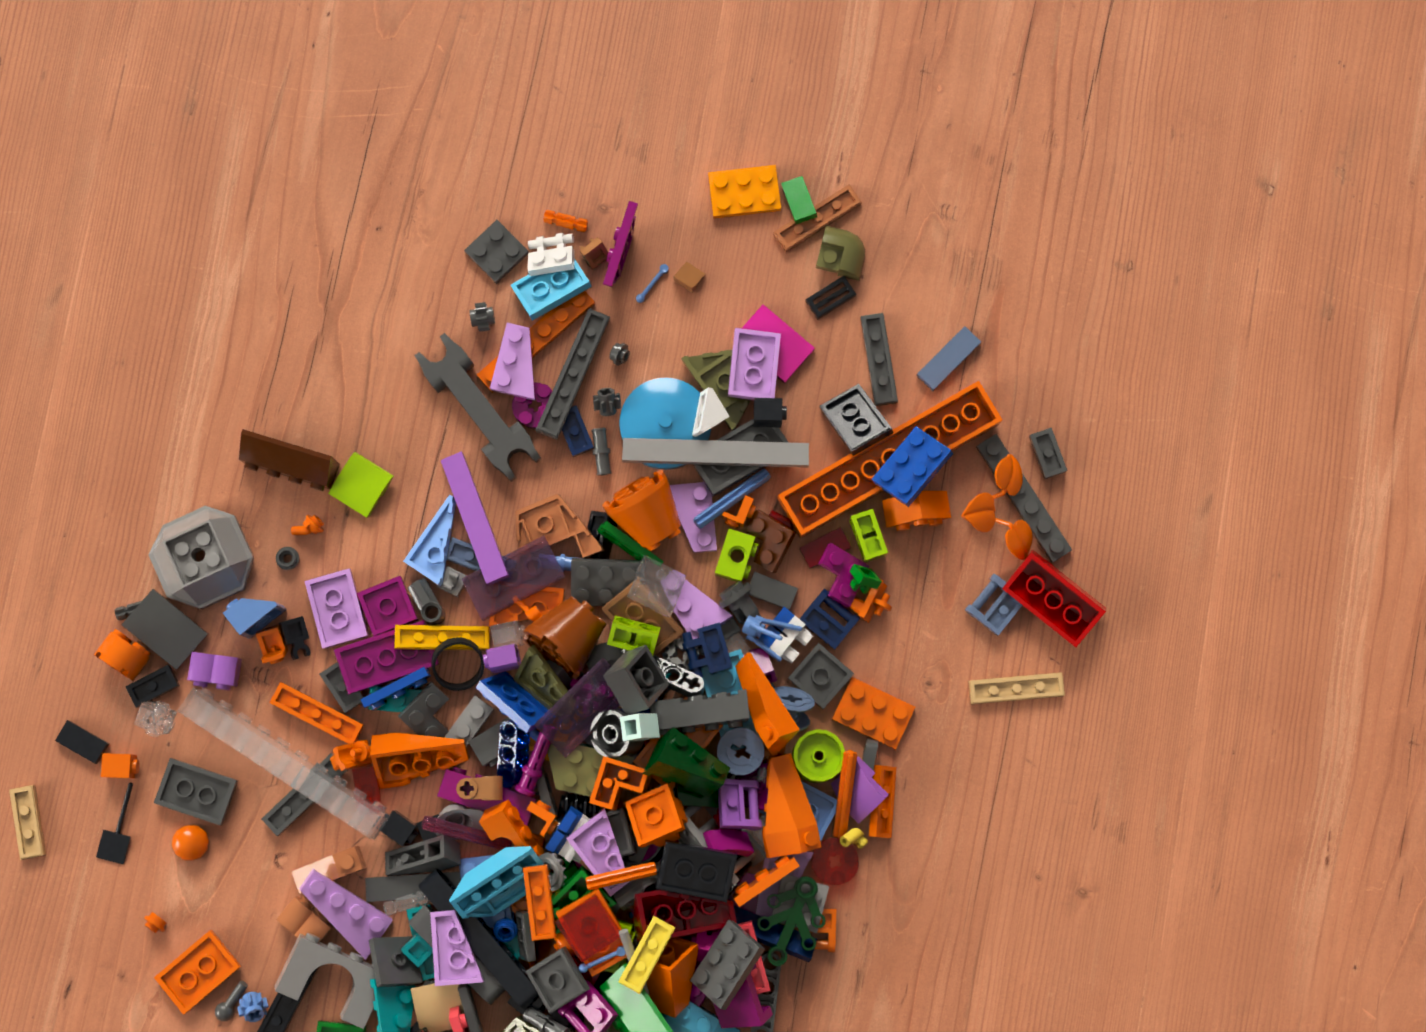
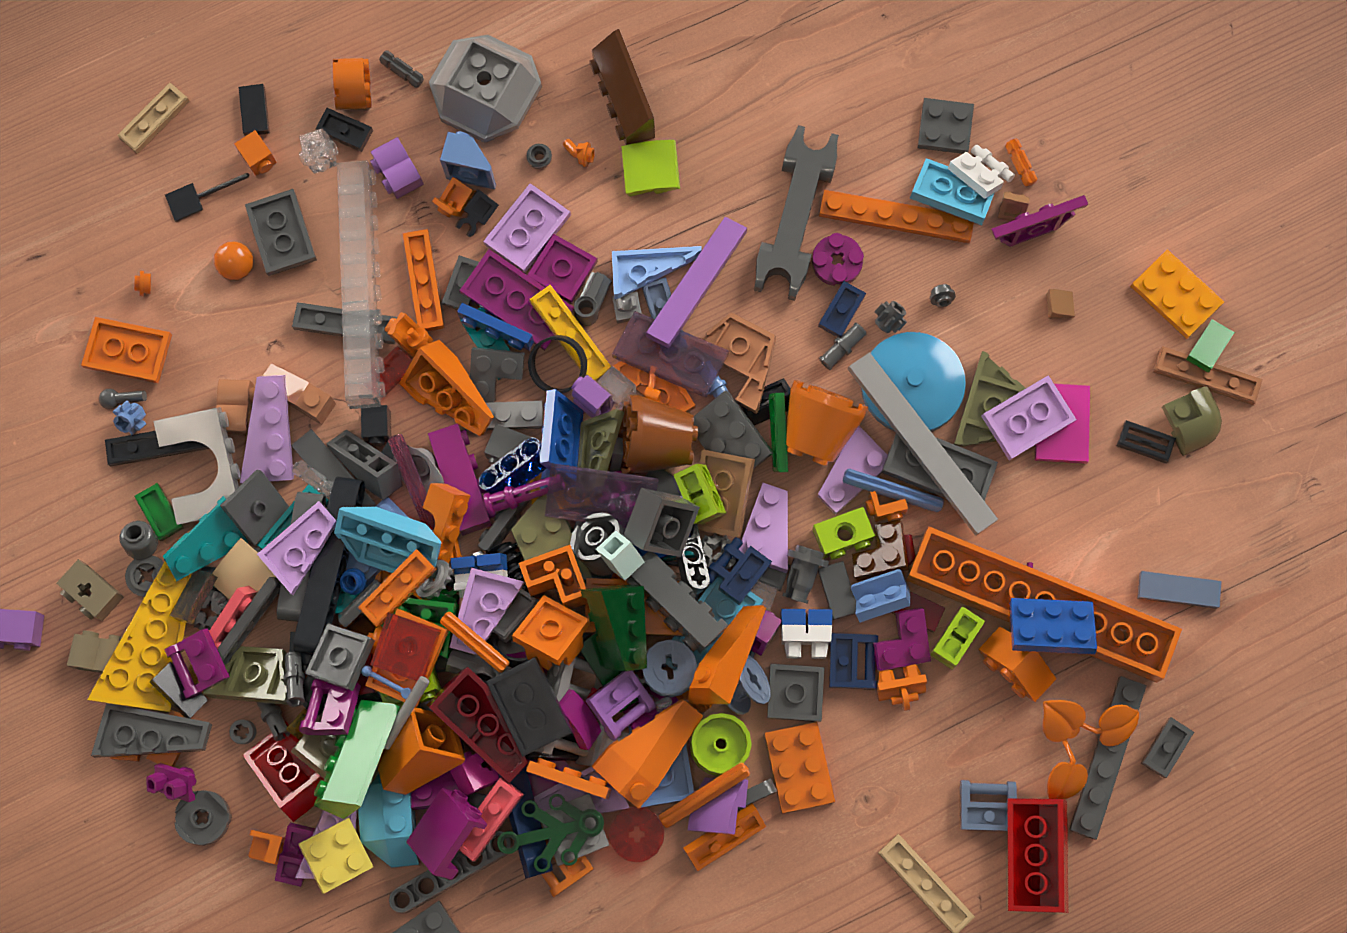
camera: 55 degrees right, 5 degrees down
(164, 629) = (400, 101): dark grey tile -> none
(417, 949) = (278, 517): teal plate -> none
(482, 316) = (878, 155): dark grey gear -> none
(485, 788) = (464, 466): medium nougat piece -> none
(514, 364) = (858, 213): lavender wing -> none
(542, 811) = (482, 532): orange bracket -> none
(572, 374) = (891, 269): dark grey tile -> none
(646, 954) = (419, 717): light yellow tile -> none
(656, 586) = (760, 481): clear slope -> none
(663, 270) = (1048, 278): medium blue hinge -> none
(709, 412) = (953, 412): white slope -> none
(727, 964) = (465, 799): dark grey plate -> none
(754, 627) = (792, 596): medium blue plant -> none
(769, 412) = (996, 462): black brick -> none
(799, 565) = (881, 595): none -> medium blue bracket
(854, 836) = (672, 834): light yellow arm -> none
(856, 419) = (1054, 546): tile -> none
(865, 577) = (917, 662): green tile -> none
(879, 359) = (1125, 527): dark grey tile -> none

